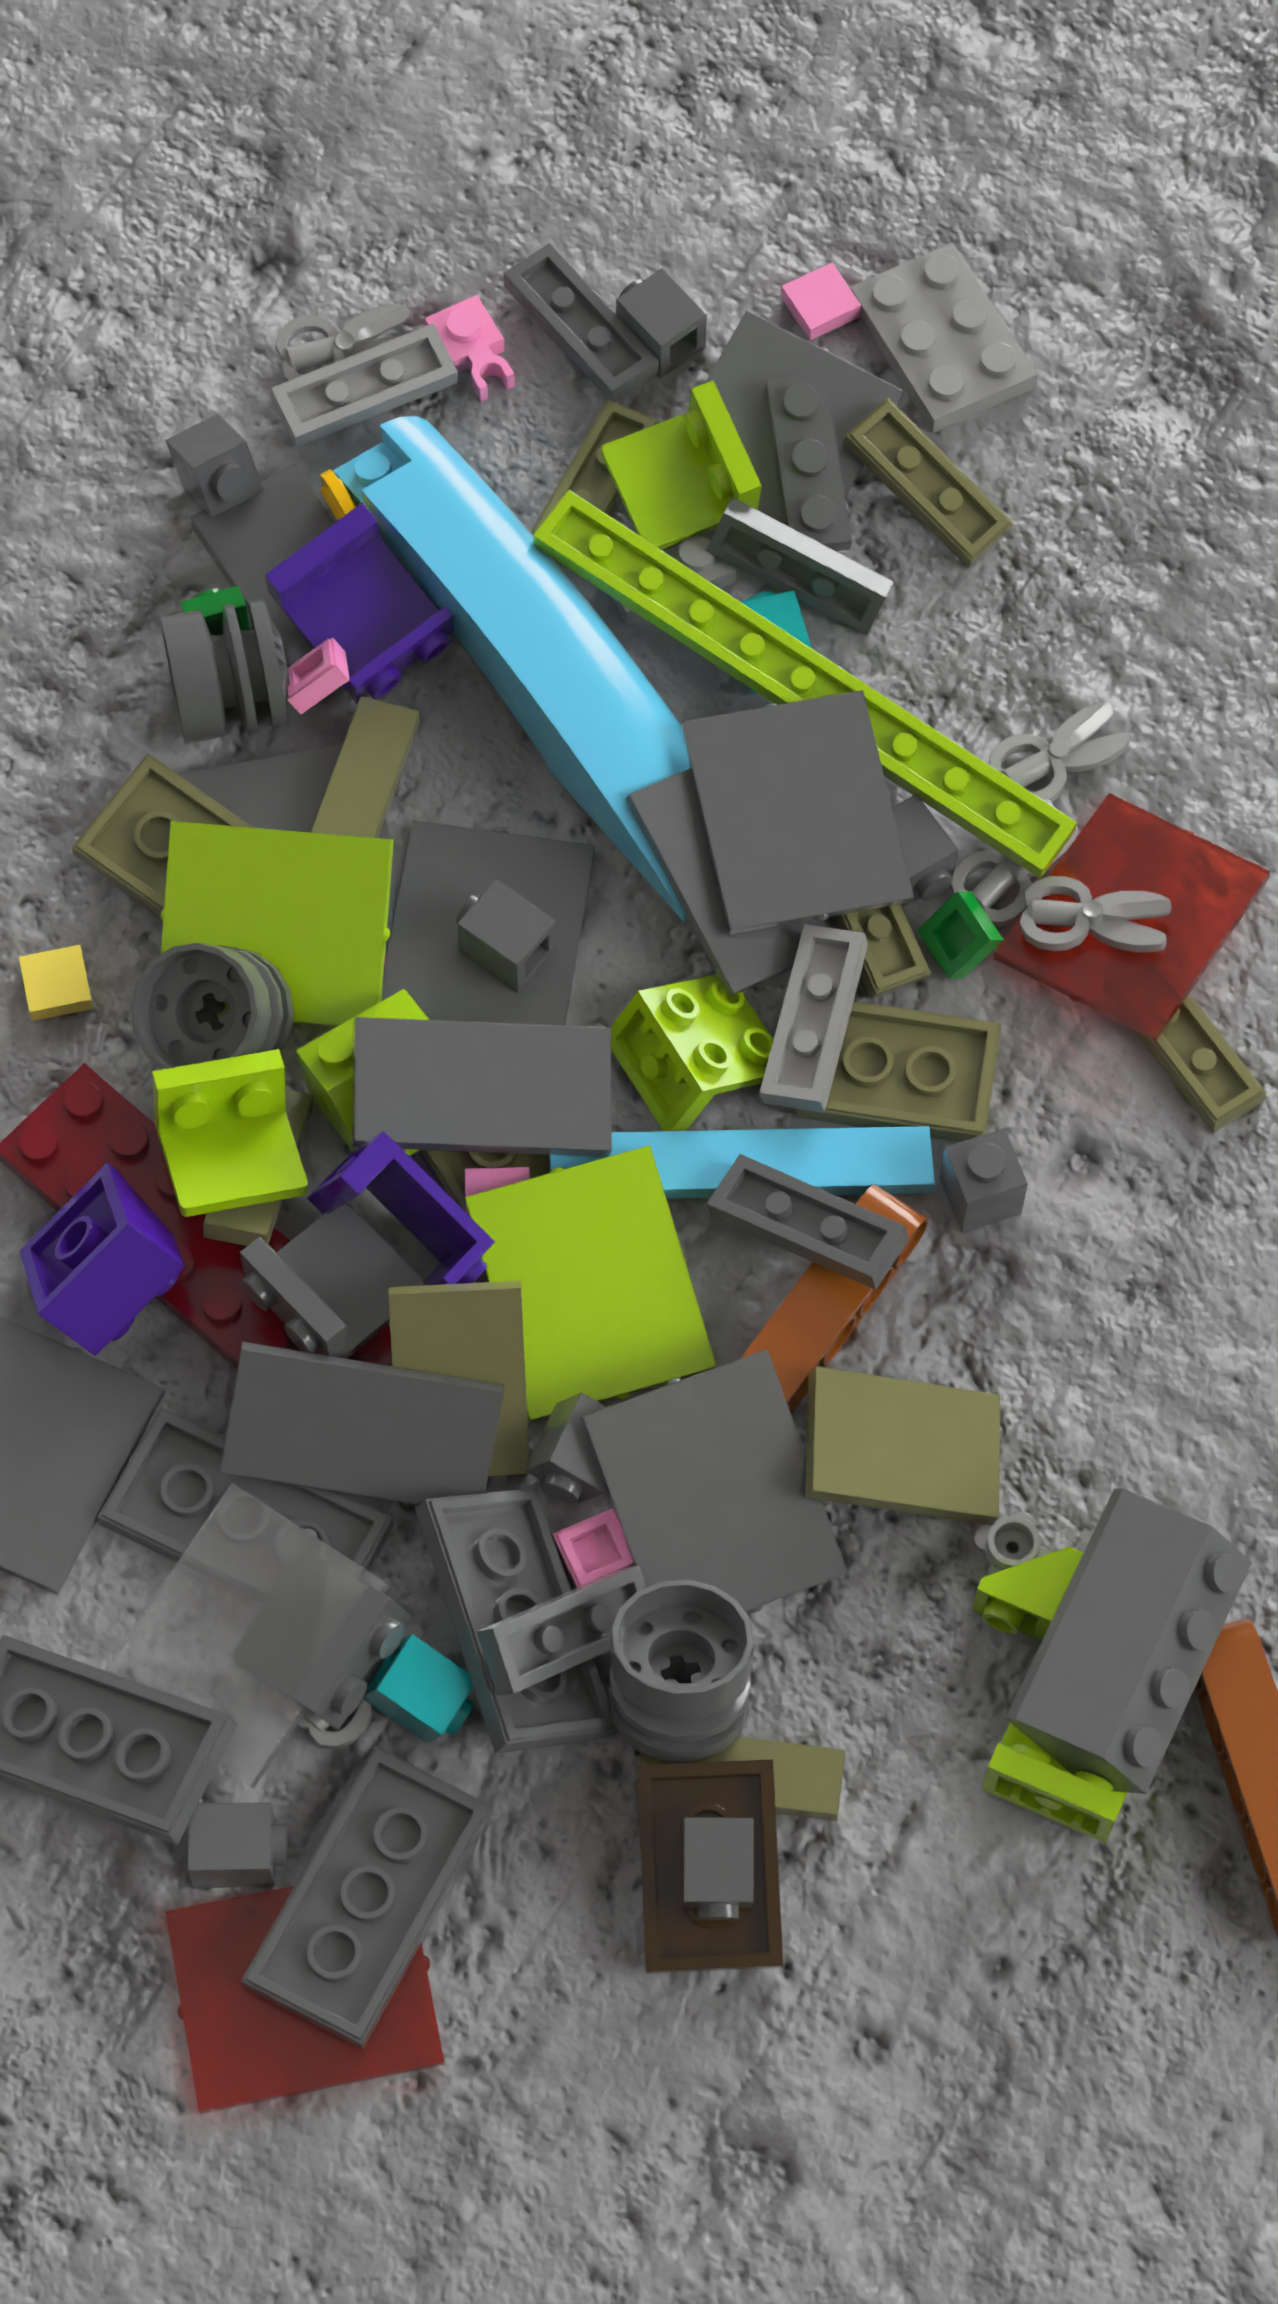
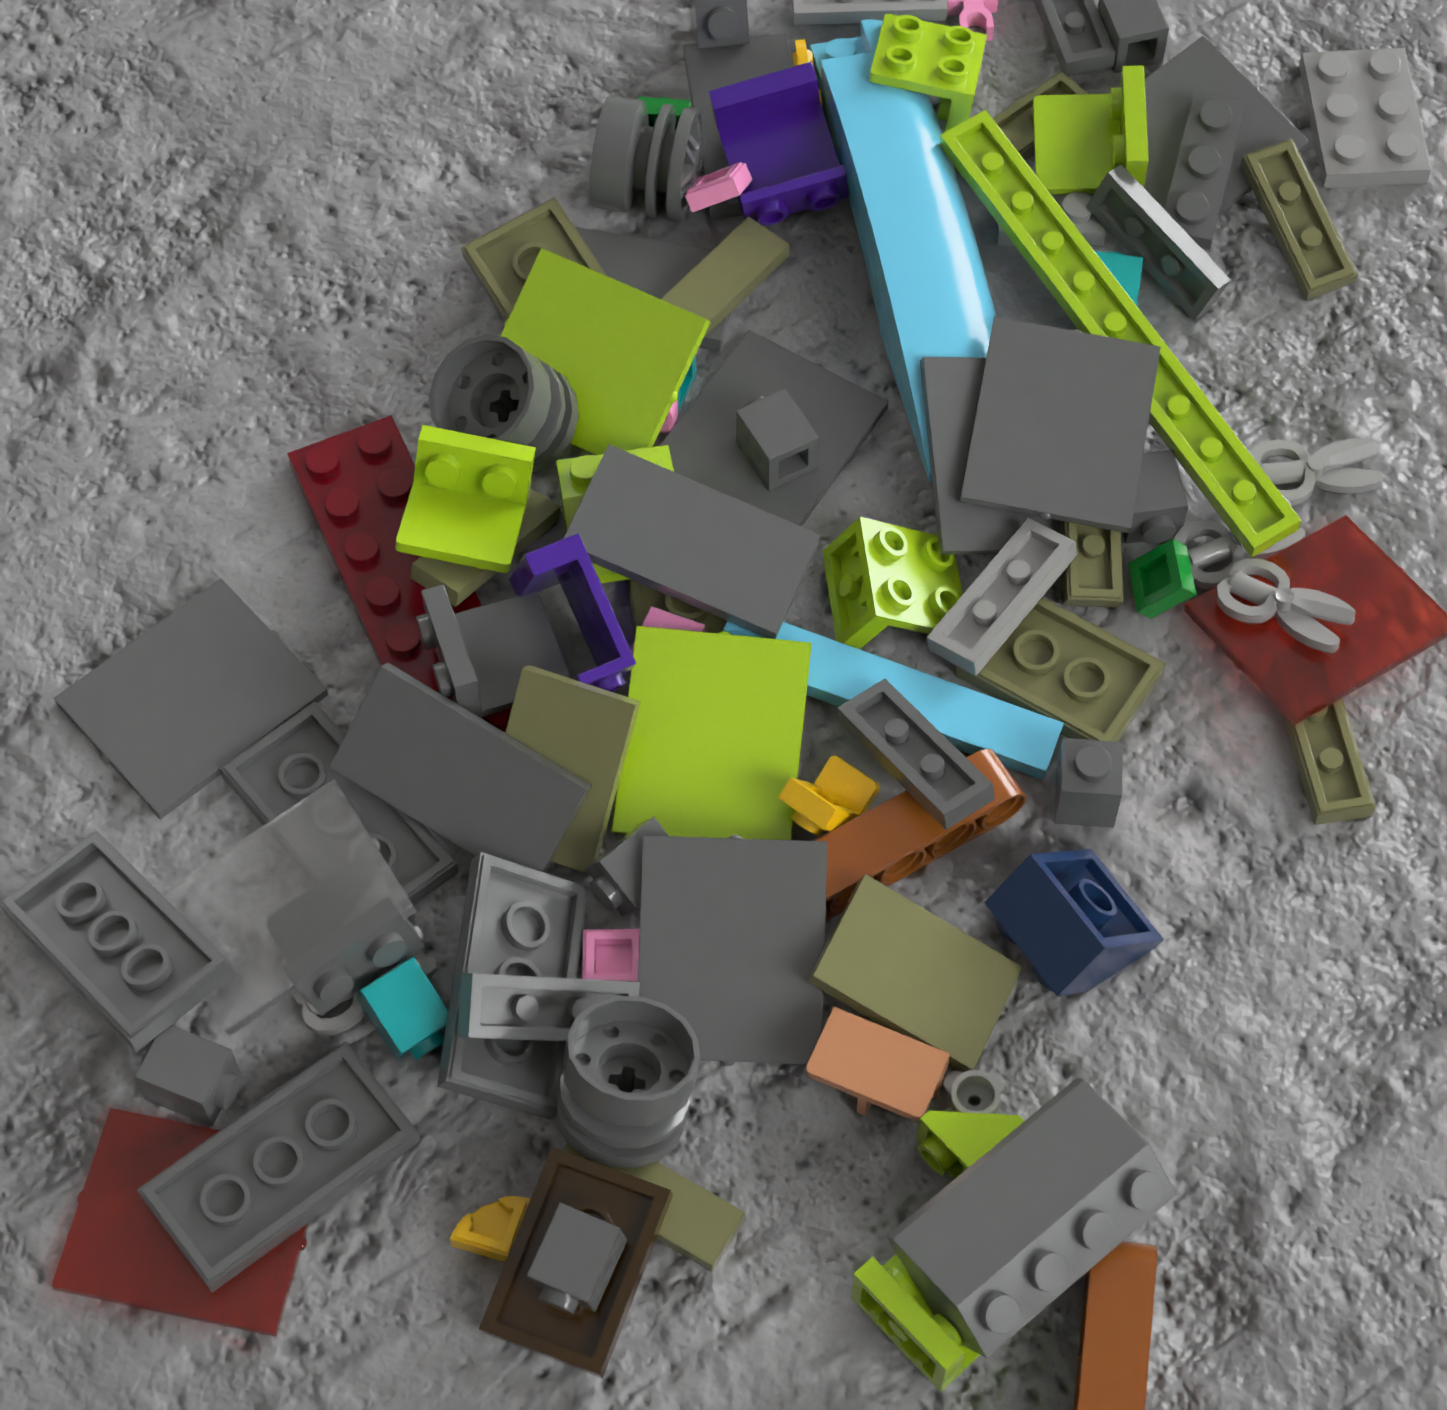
camera: 25 degrees right, 5 degrees down
(56, 982) = (402, 349): light yellow tile -> none
(100, 1261) = (319, 568): dark purple slope -> none
(480, 450) = (931, 62): none -> lime bracket
(607, 1868) = (491, 1228): none -> yellow tile
(739, 1299) = (833, 799): none -> yellow bracket
(821, 301) = (1273, 57): bright pink tile -> none
(910, 1553) = (877, 1065): none -> nougat panel
(1027, 1329) = (1071, 920): none -> dark blue slope

